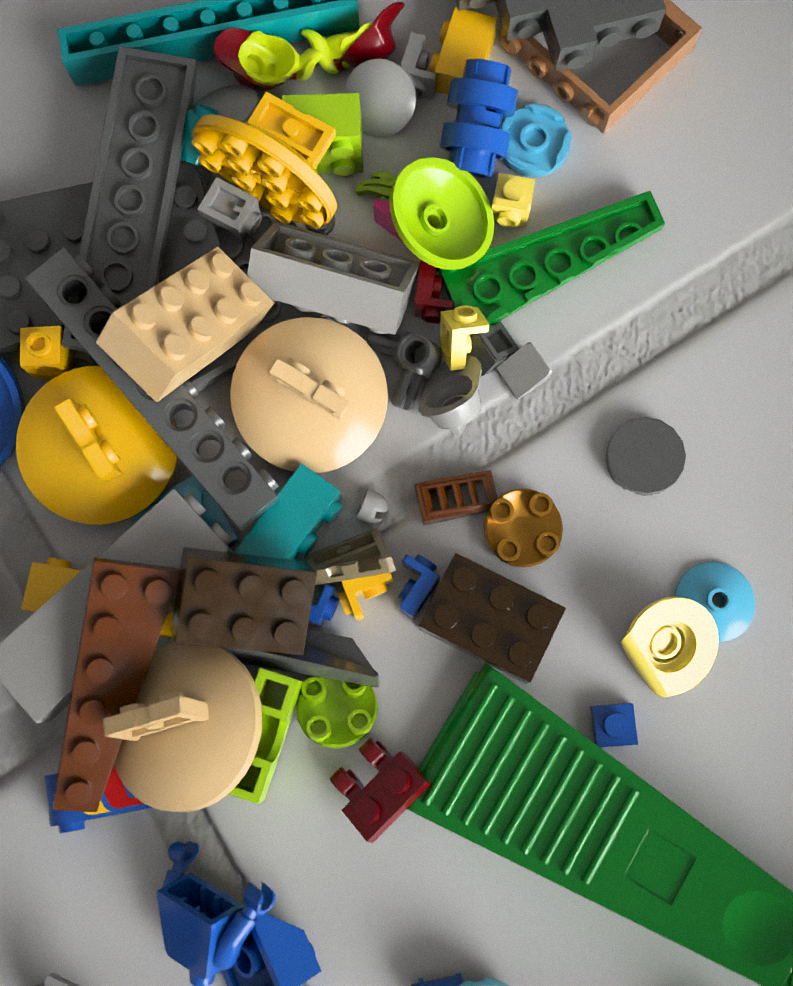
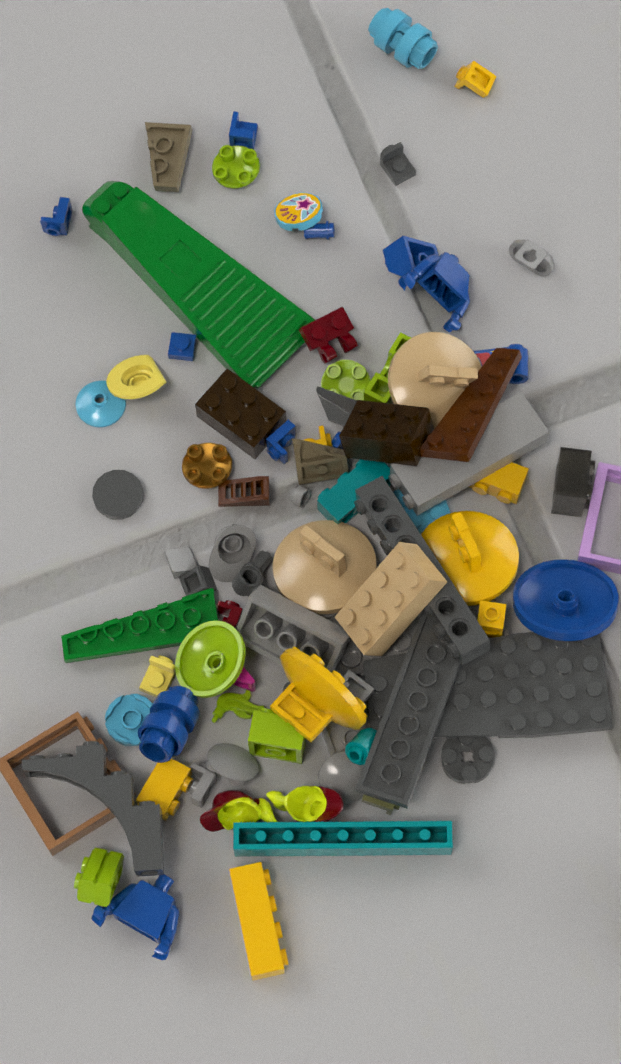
camera: 170 degrees left, 10 degrees down
(57, 161) = (467, 772): none -> dark grey plate
(455, 334) = (216, 586): light yellow bracket -> none

